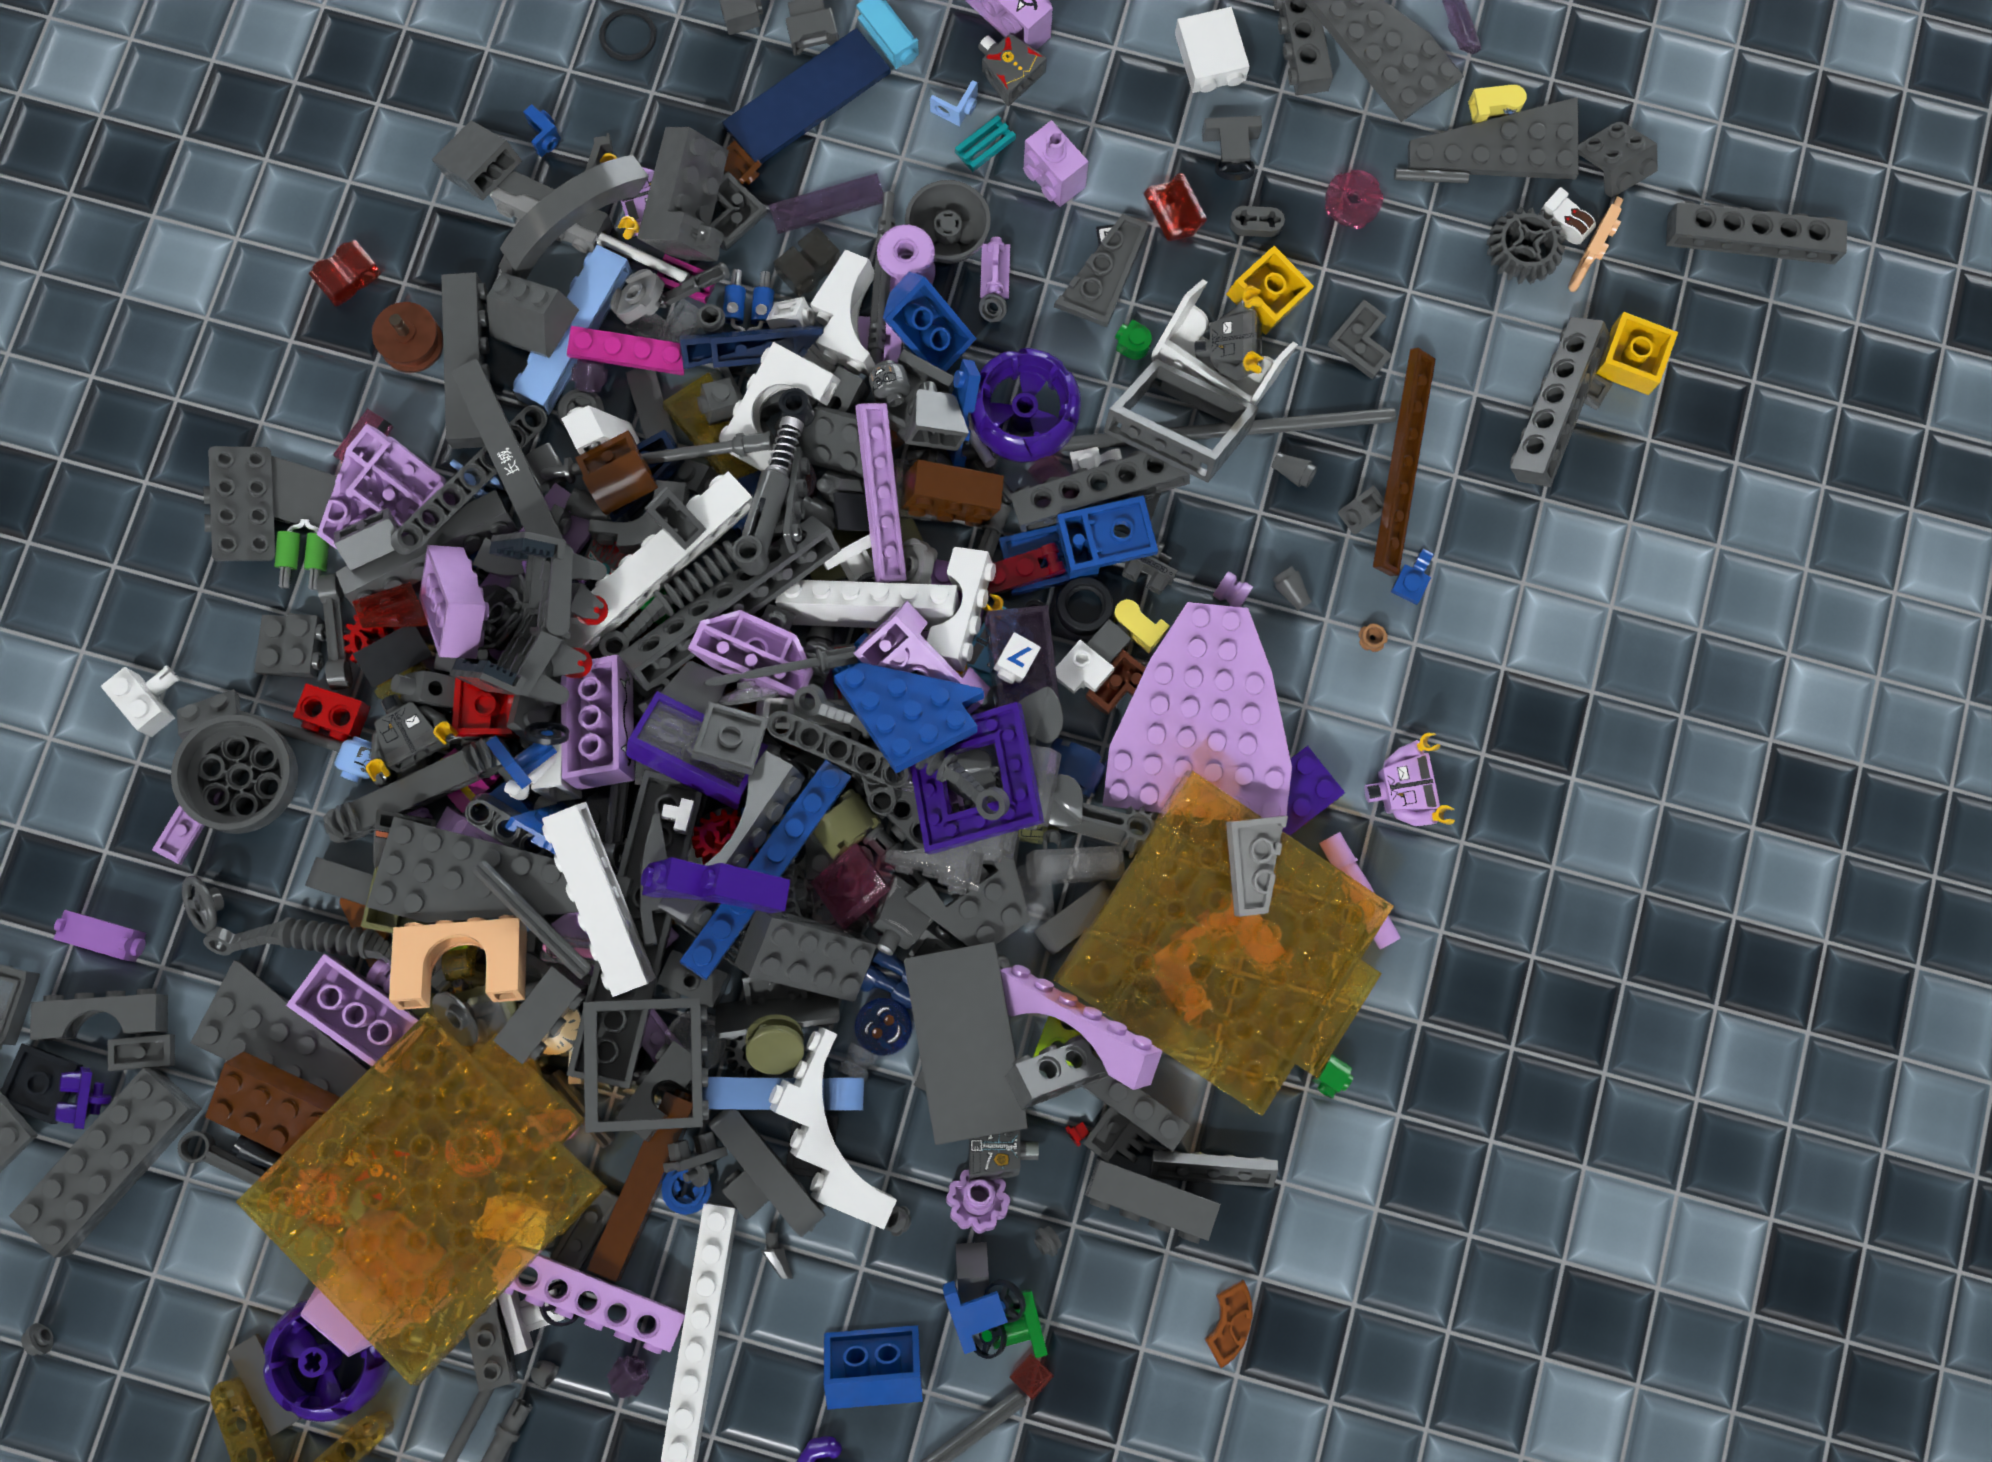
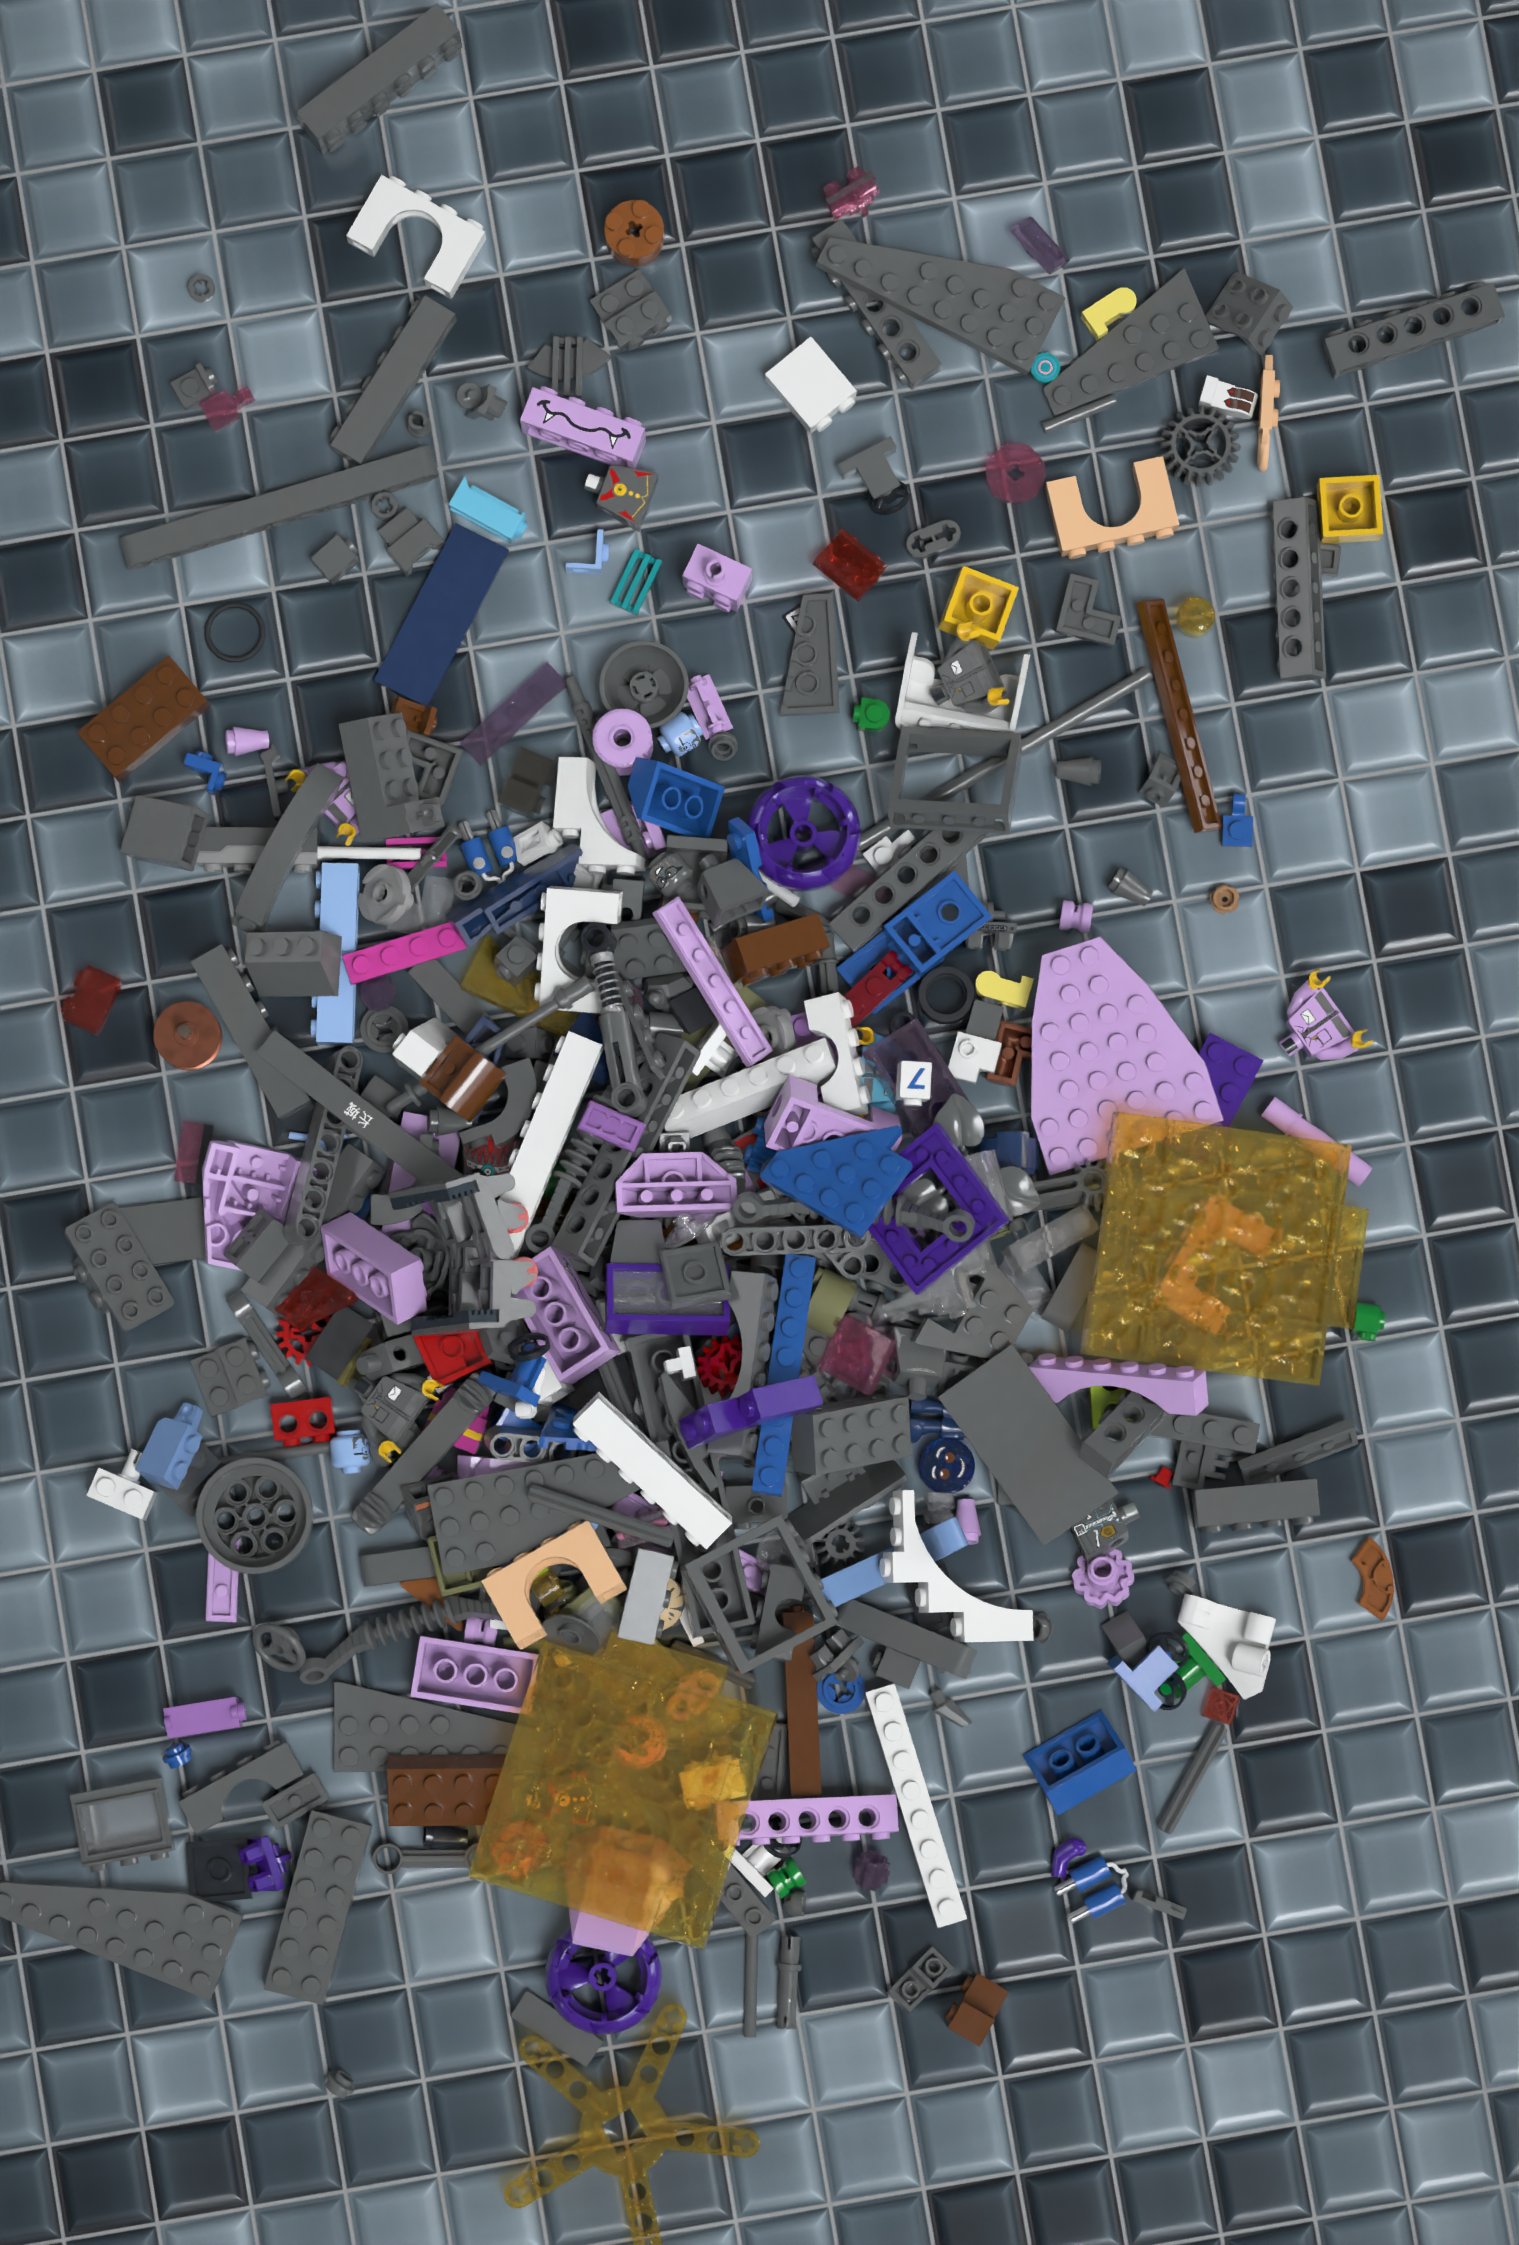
camera: 20 degrees left, 5 degrees up
(59, 959) = (177, 1755): none -> blue plate
(201, 681) = (171, 1448): none -> medium blue hinge
(288, 552) = (183, 1293): bright green piece -> none
(511, 64) = (143, 719): none -> reddish brown brick
(546, 1344) = (781, 1883): none -> green wheel
(588, 121) = (243, 740): none -> lavender cone
(675, 518) = (547, 1100): dark grey slope -> none
(724, 572) = (611, 1126): none -> medium lavender plate
(774, 1044) = (861, 1525): olive head -> none
(824, 660) = (739, 1165): dark grey piece -> none
(877, 1087) = (968, 1520): none -> lavender cone
(960, 280) = (680, 734): none -> light blue head
(1071, 1318) = (1233, 1640): none -> white panel
(1252, 860) = (1208, 1167): light grey wing -> none
(1388, 272) = (1079, 533): none -> light nougat arch
(1419, 125) = (1045, 368): none -> teal tile
(1457, 383) = (1195, 627): none -> clear yellow head

